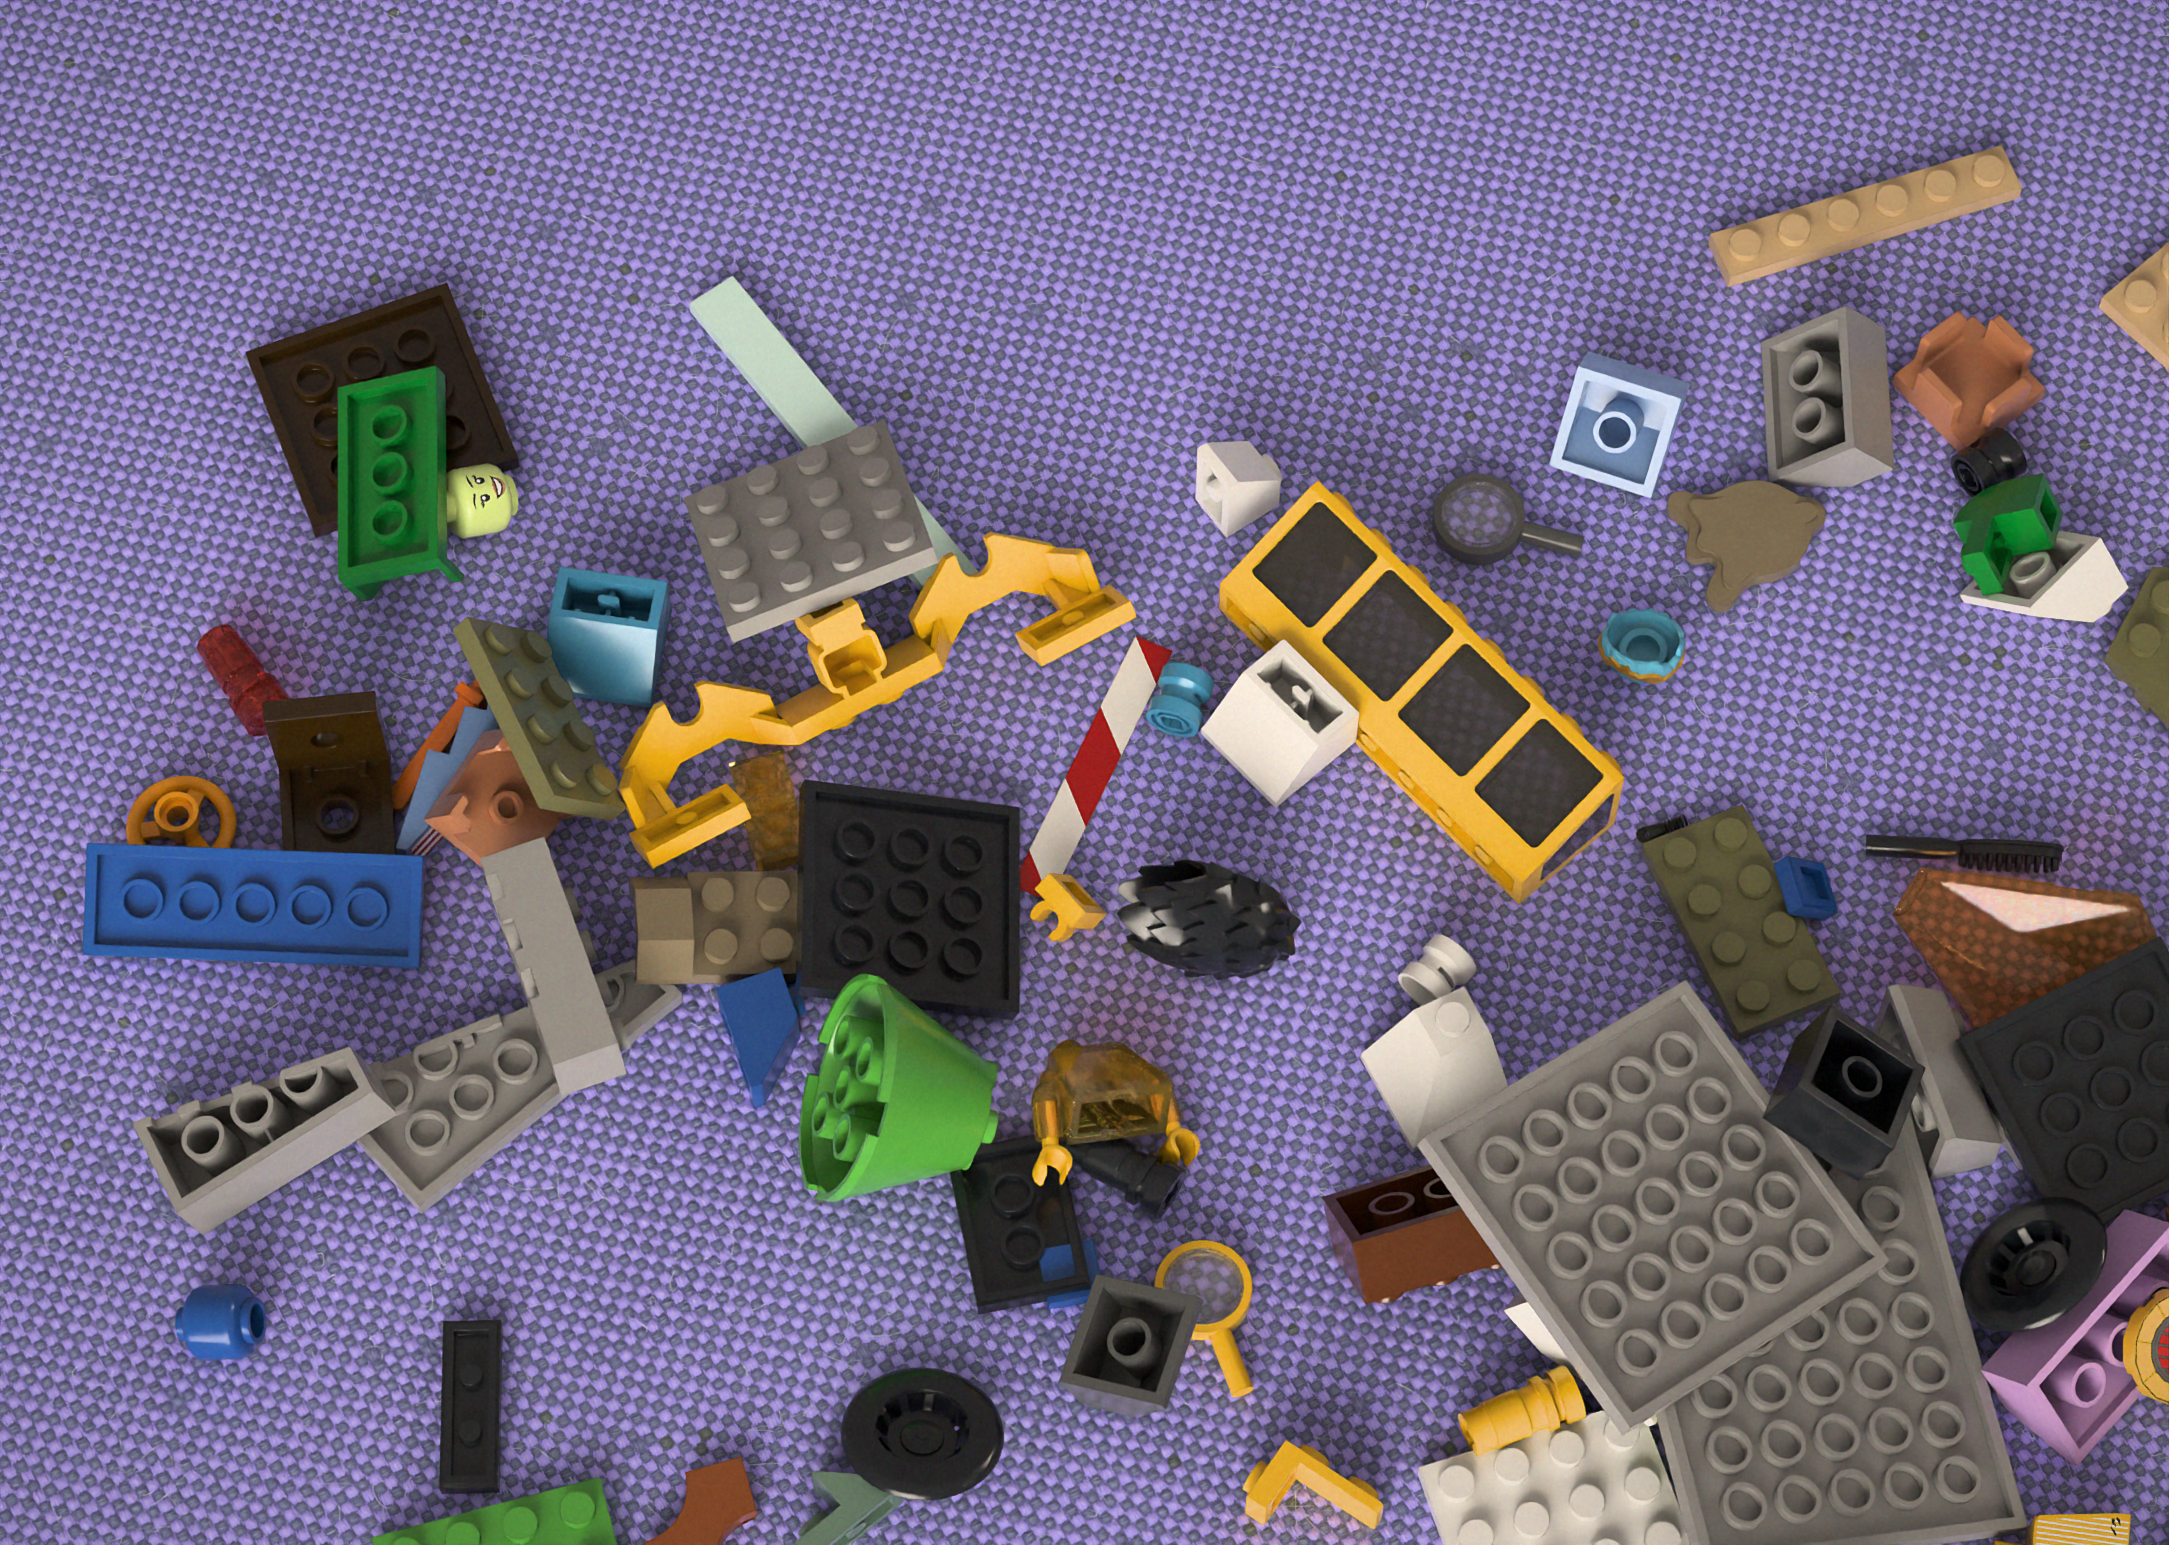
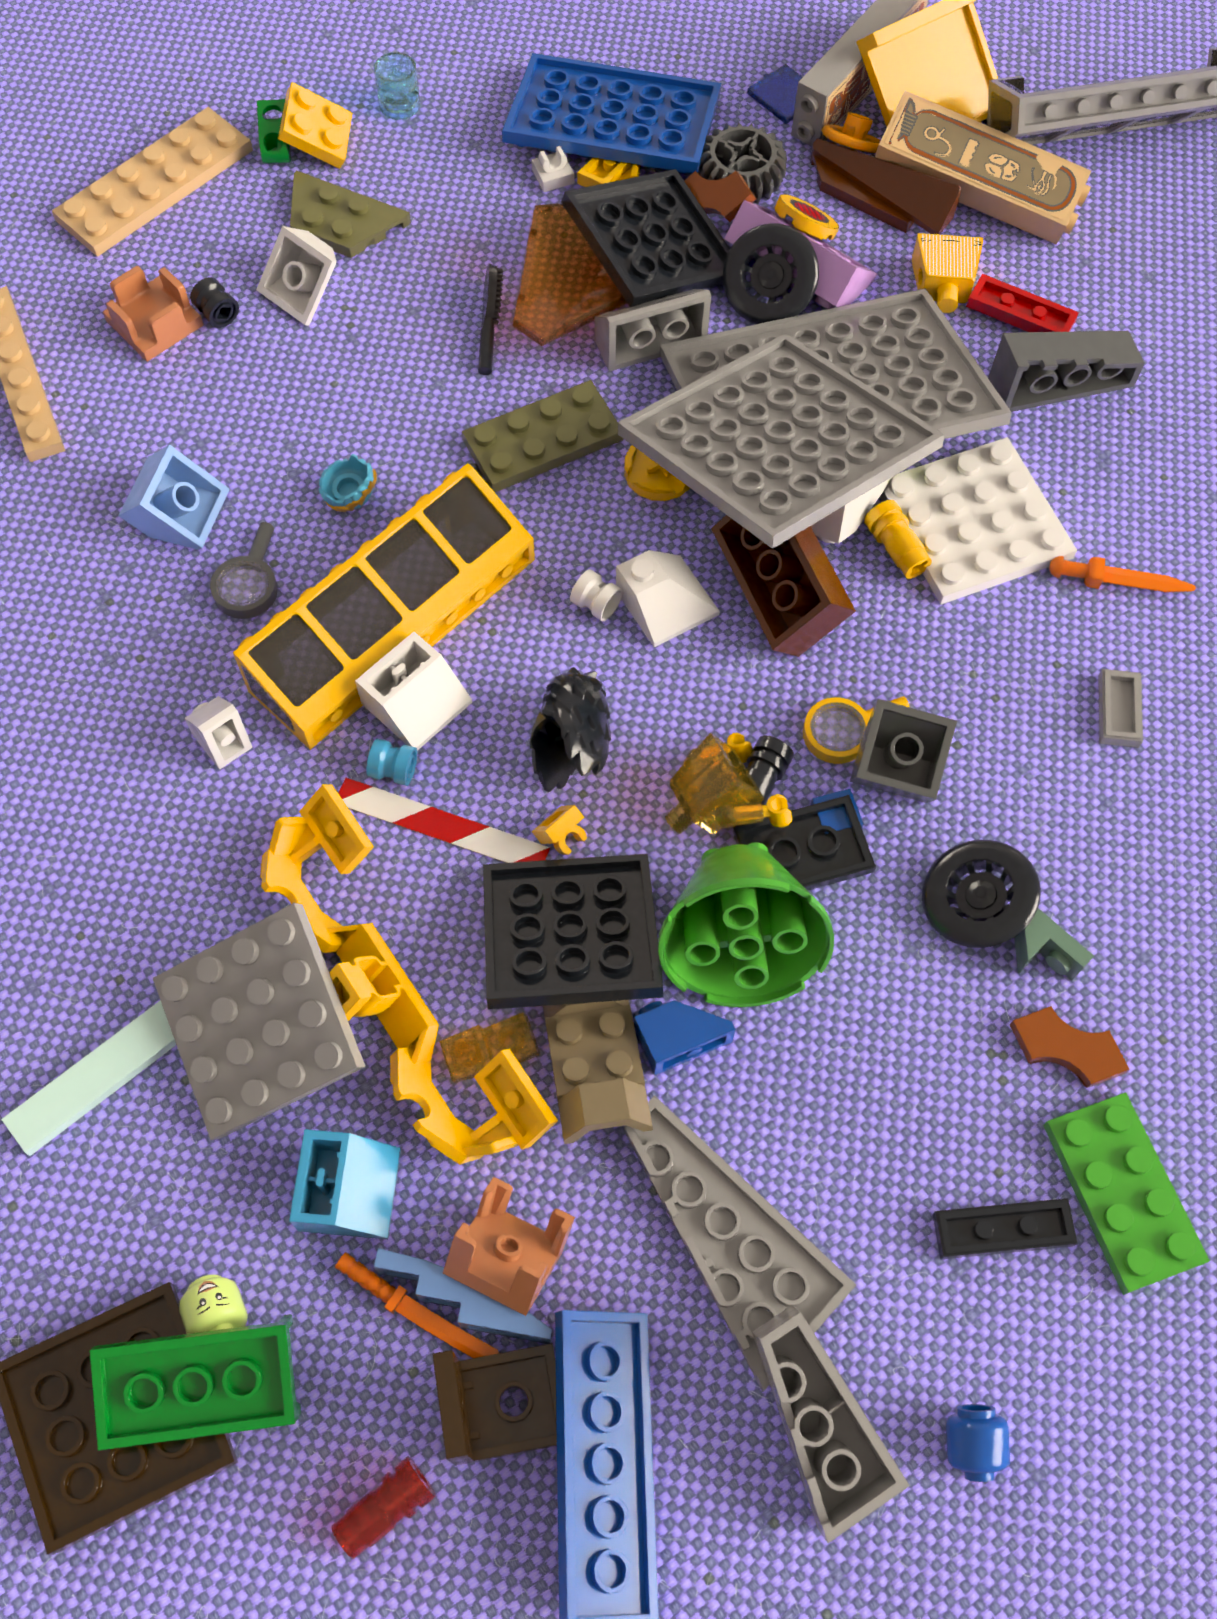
camera: 95 degrees left, 0 degrees up
(176, 804) = (488, 1539): light orange piece -> none
(540, 719) = (437, 1218): olive plate -> none
(556, 966) = (657, 1185): light grey wedge -> none
(1272, 1481) = (965, 672): yellow bracket -> none
(1747, 532) = (259, 433): dark tan tile -> none
(1806, 888) = (520, 395): blue tile -> none
(1827, 402) = (163, 387): light grey slope -> none
(1844, 1093) = (689, 339): black brick -> none
(2004, 523) = (261, 286): green brick -> none

